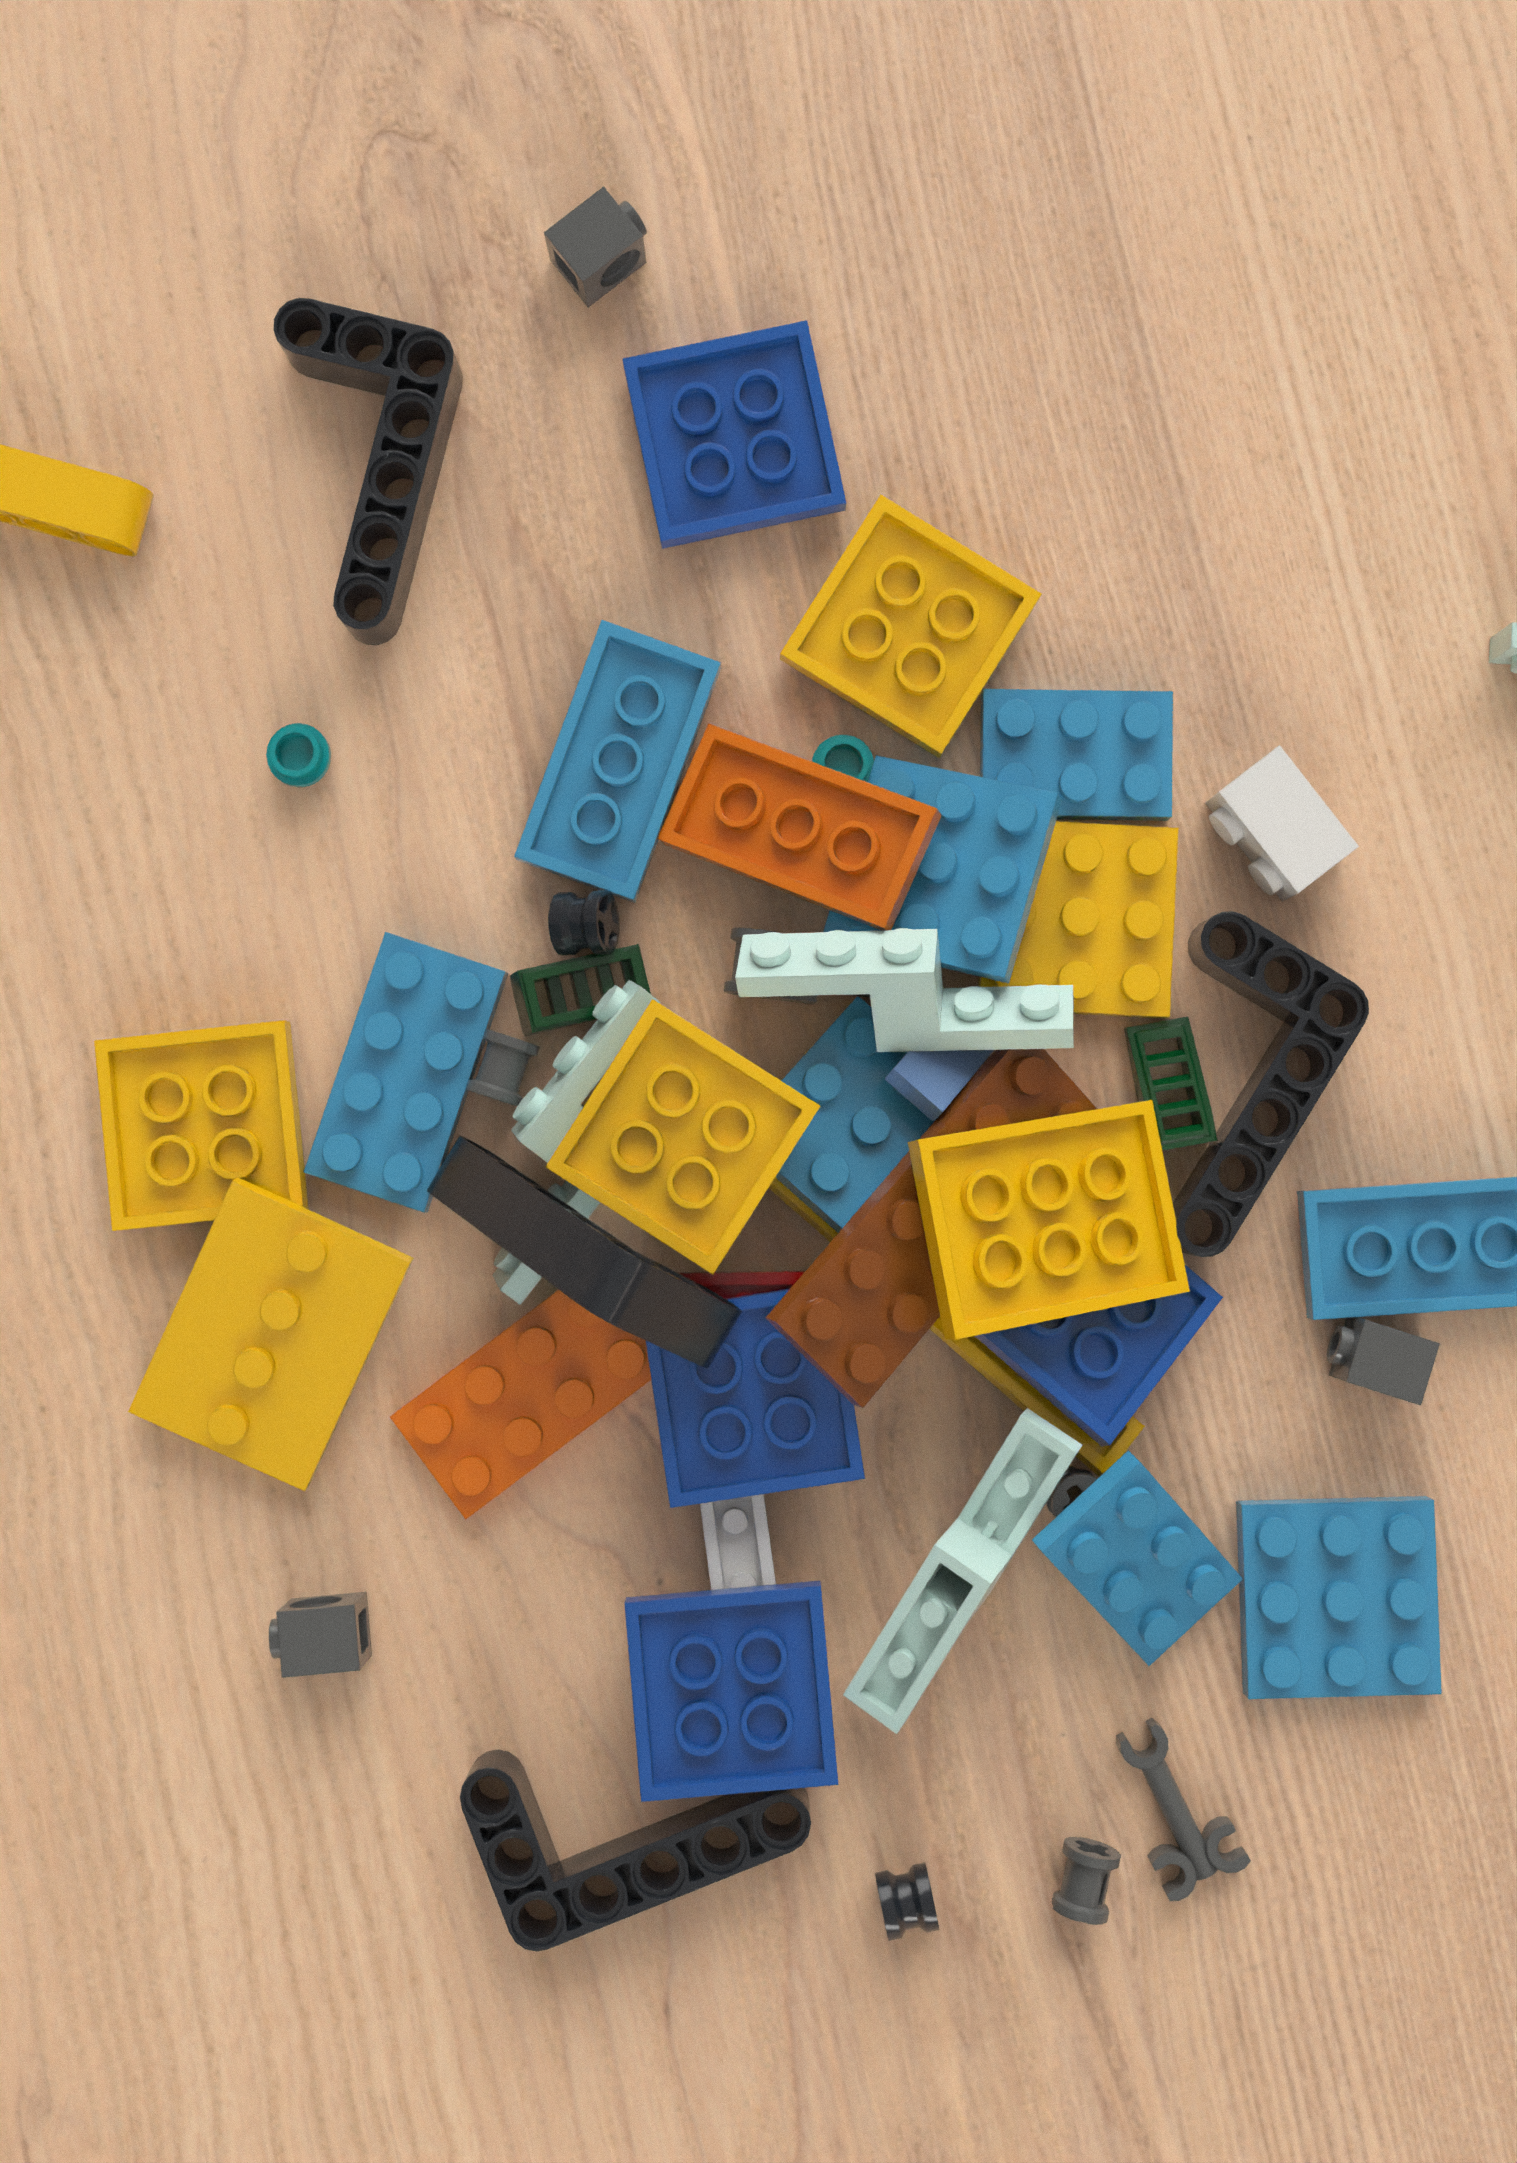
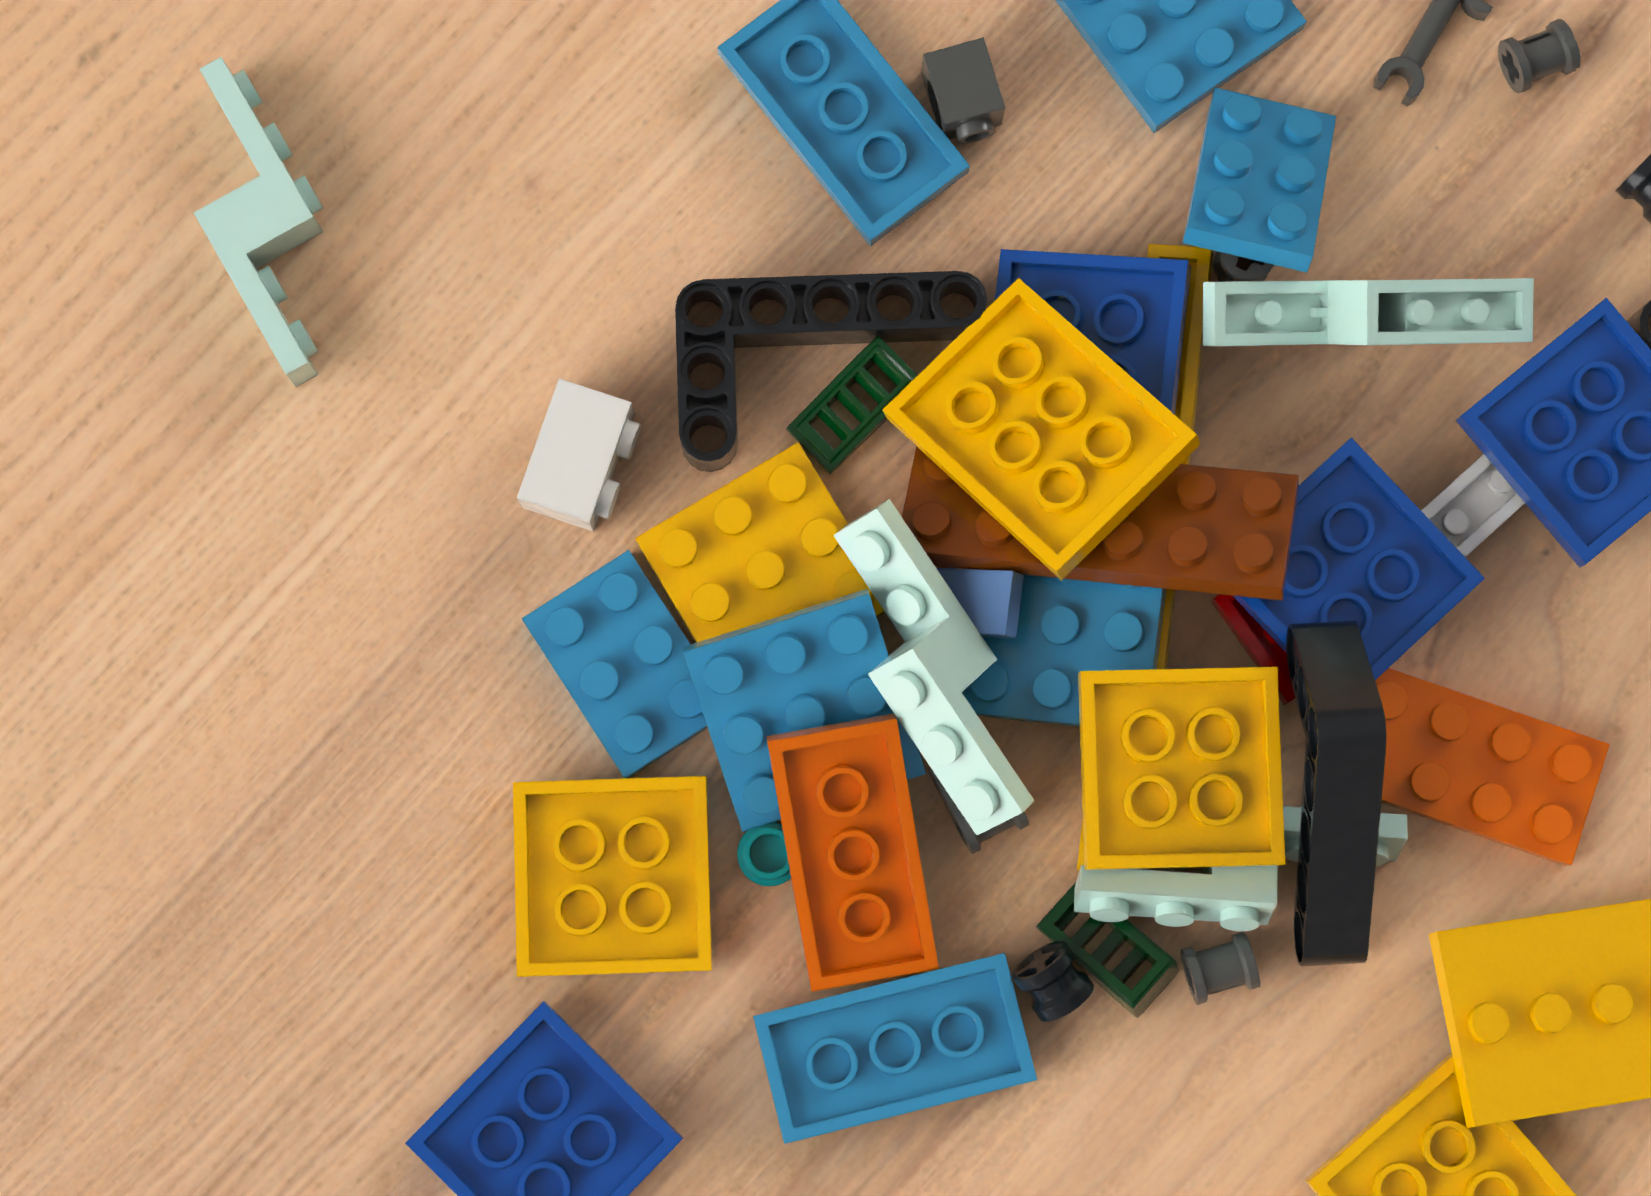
camera: 130 degrees left, 5 degrees down
(405, 1072) = (1278, 1050): dark azure plate -> none

